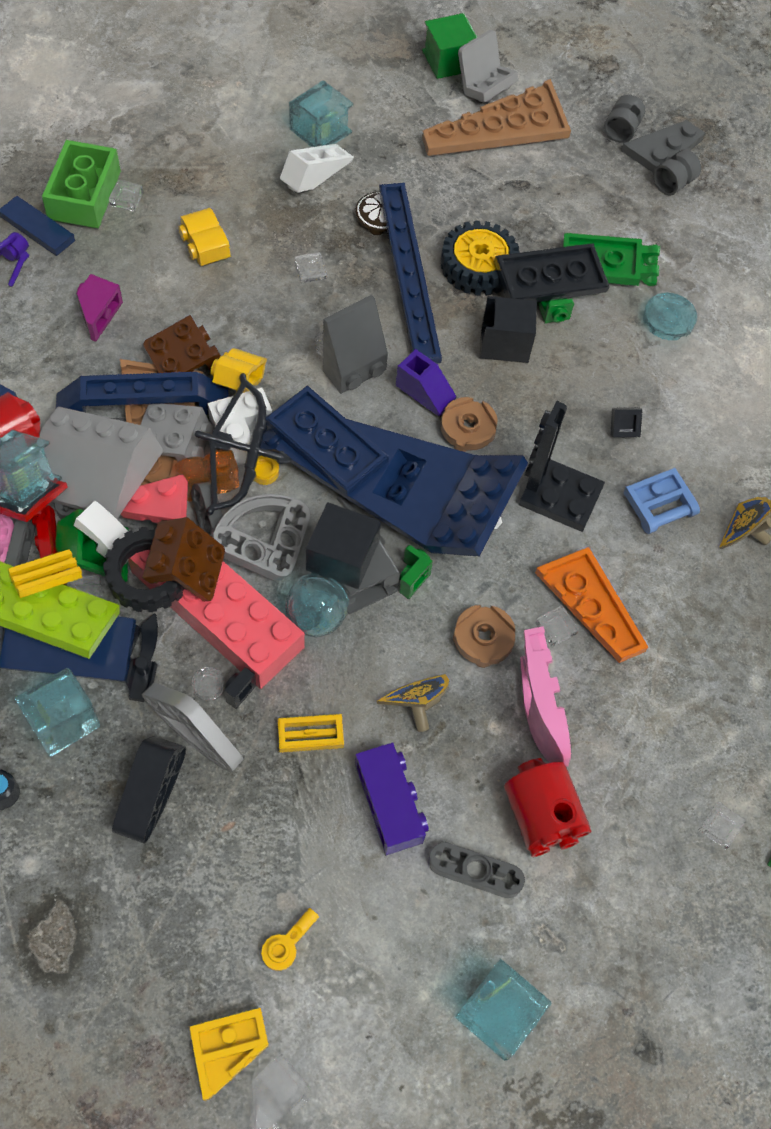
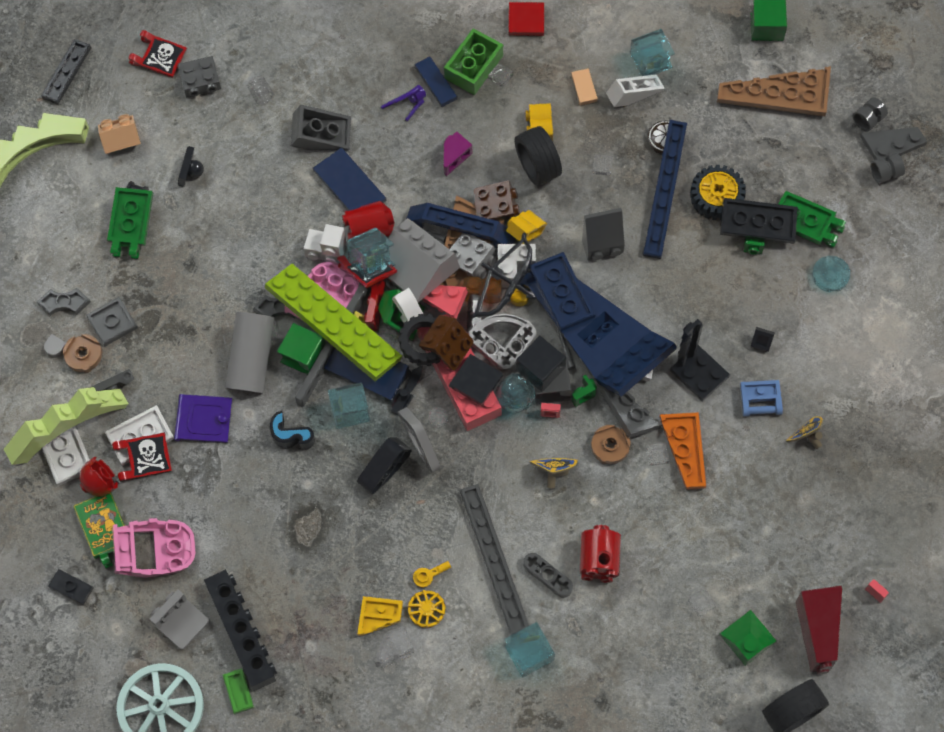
camera: 30 degrees right, 5 degrees up
(42, 570) = (366, 320): yellow tile -> none
(135, 121) = (526, 18): none -> red tile
(221, 270) = (538, 155): none -> black tyre
(239, 687) = (454, 426): black plate -> none
(246, 181) = (584, 87): none -> light nougat tile
(250, 604) = (476, 380): none -> black tile
(304, 1004) = (426, 609): none -> yellow wheel
(307, 745) = (498, 477): yellow tile -> none
(376, 614) = (550, 410): none -> coral tile
(385, 880) = (494, 559): none -> dark grey tile
(391, 798) = (515, 518): dark purple brick -> none
(424, 382) = (641, 271): dark purple slope -> none
(464, 437) = (652, 315): medium nougat plate -> none
(482, 70) = (784, 47): light grey bracket -> none
(494, 583) = (629, 414): none -> dark grey wing
(508, 329) = (711, 252): black piece -> none
(544, 718) = (623, 484): bright pink slope -> none

